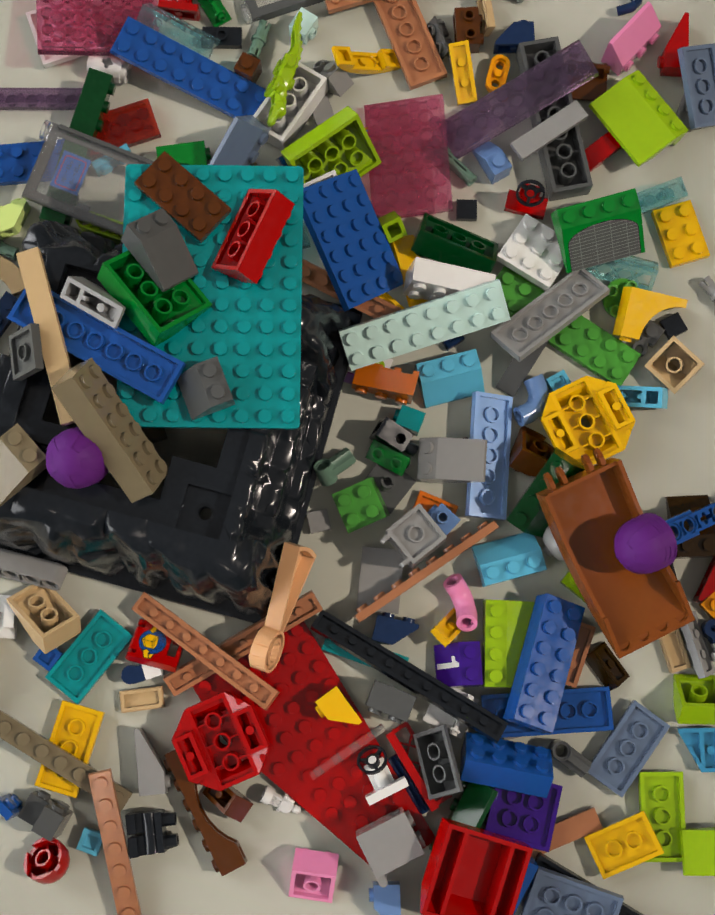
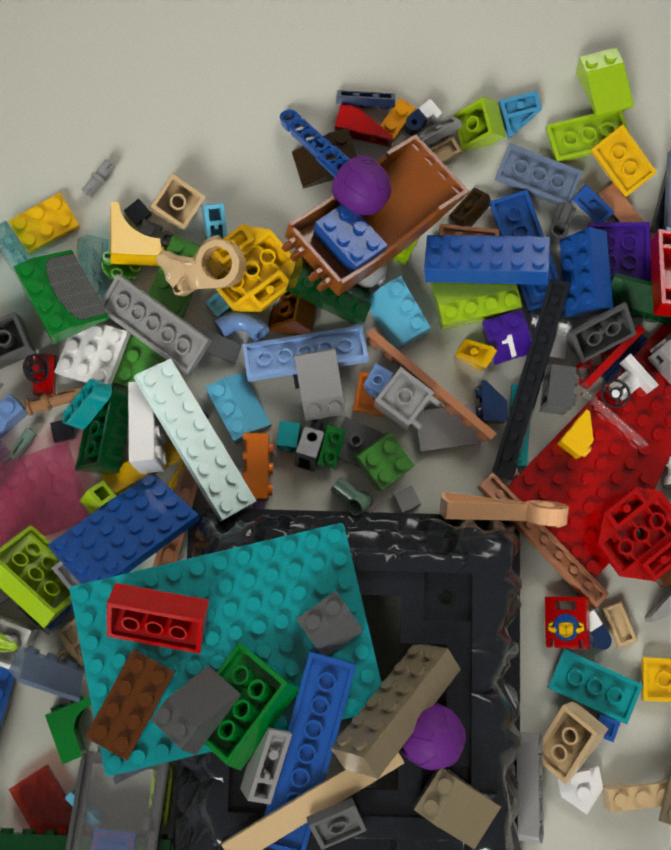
camera: 100 degrees left, 0 degrees up
(205, 651) = (561, 573): nougat plate -> none
(463, 602) = (449, 346): bright pink cylinder -> none
(485, 234) = (87, 404): none -> teal beam
(497, 201) = (47, 401): none -> medium nougat pin
(582, 796) = (592, 204): none -> blue plate
(593, 518) = (348, 238): none -> blue brick
(594, 362) = (194, 273): none -> tan animal

